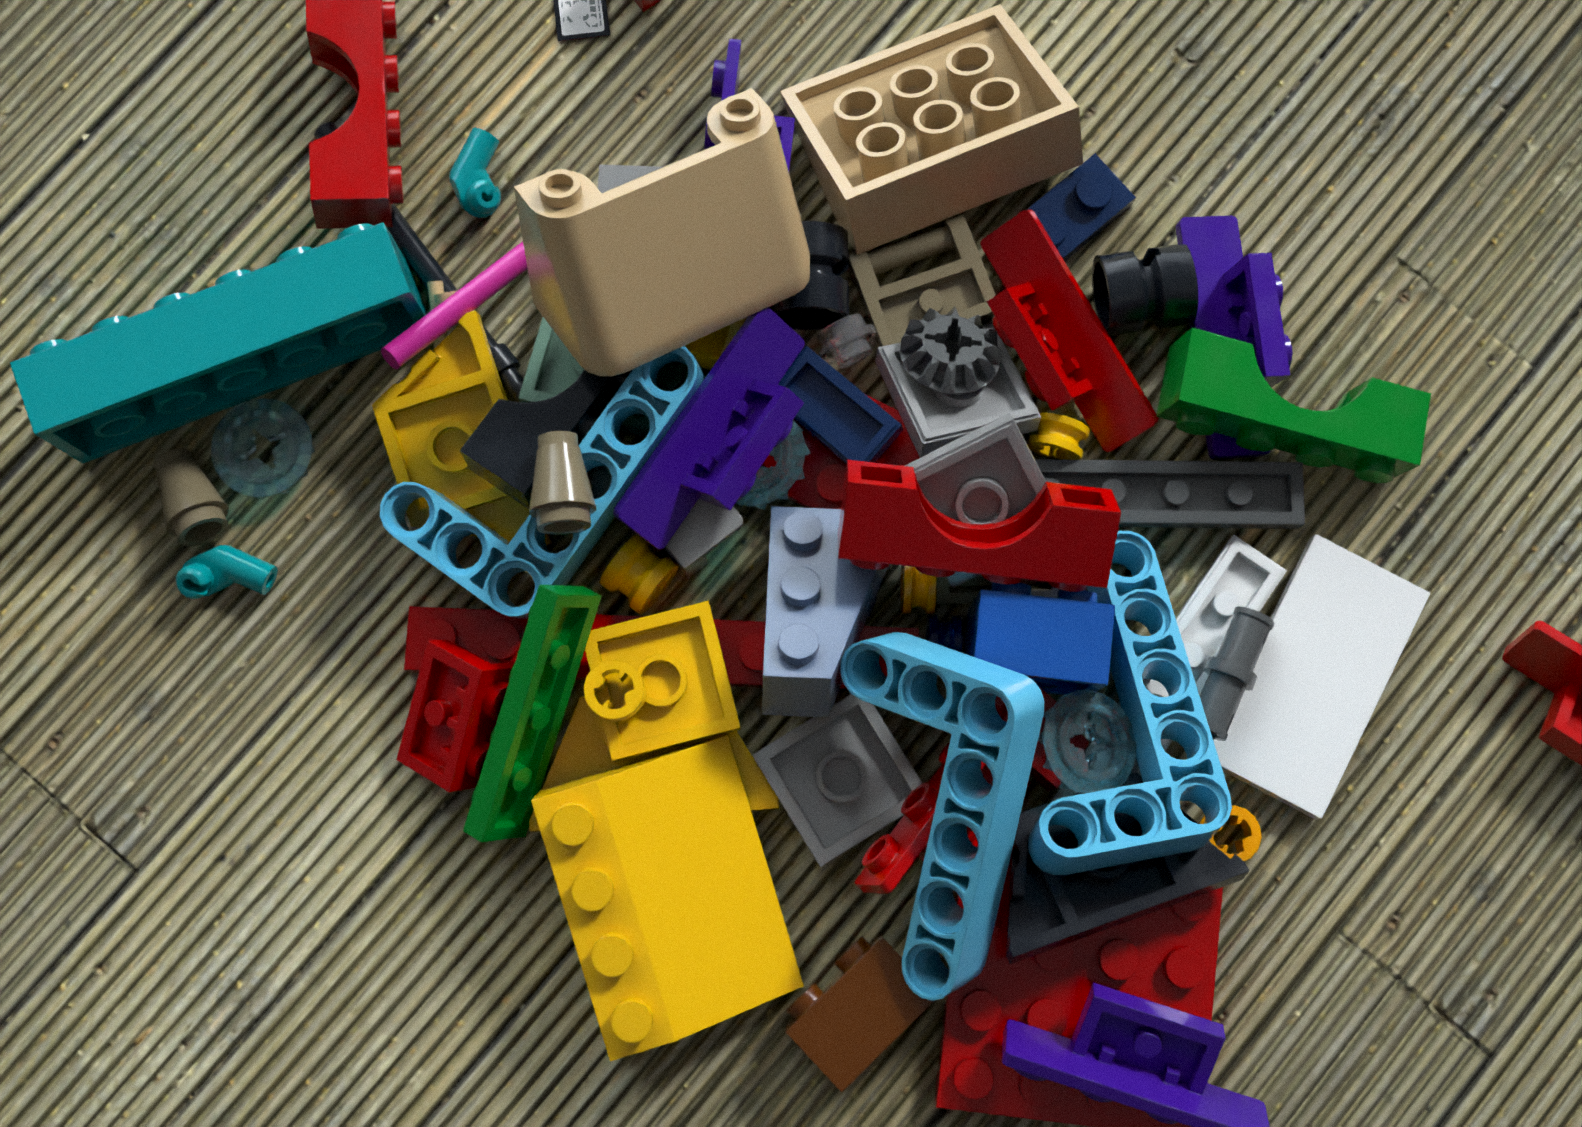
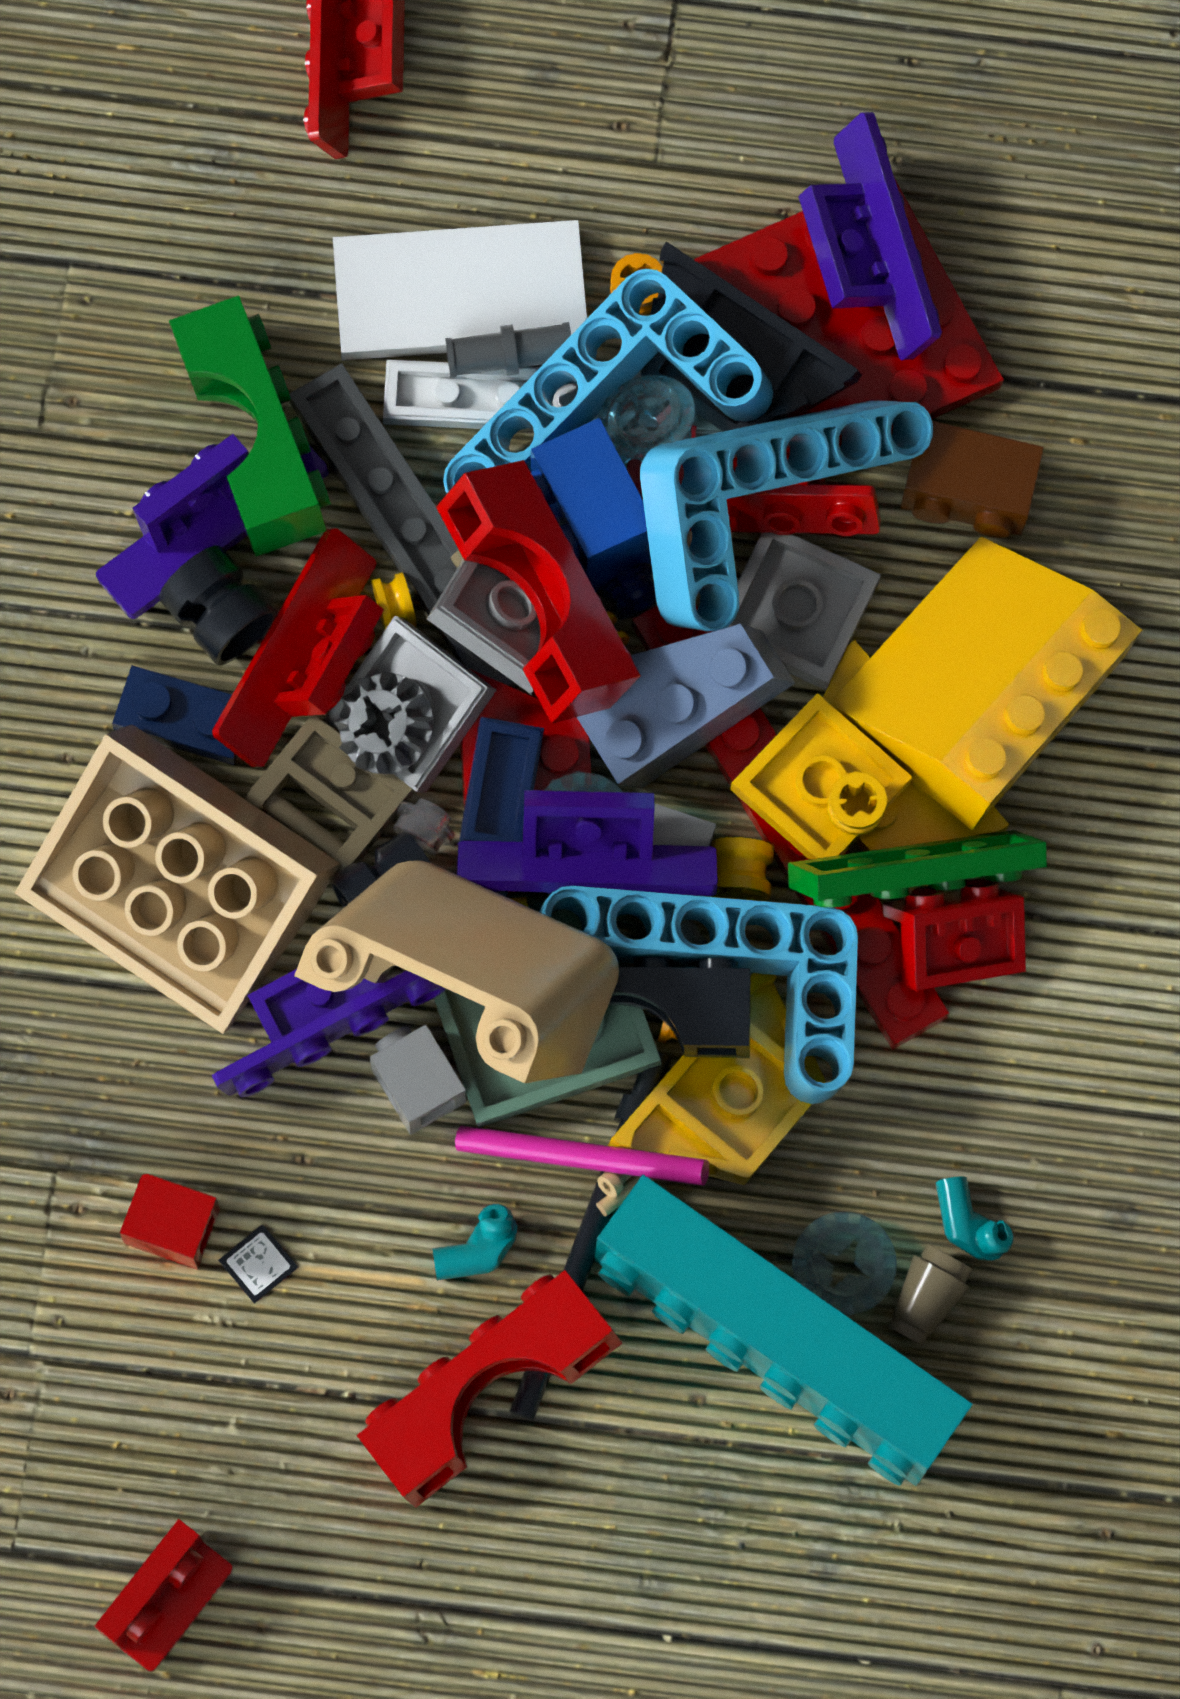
camera: 125 degrees left, 5 degrees down
(560, 486) = (726, 934): dark tan cone -> none

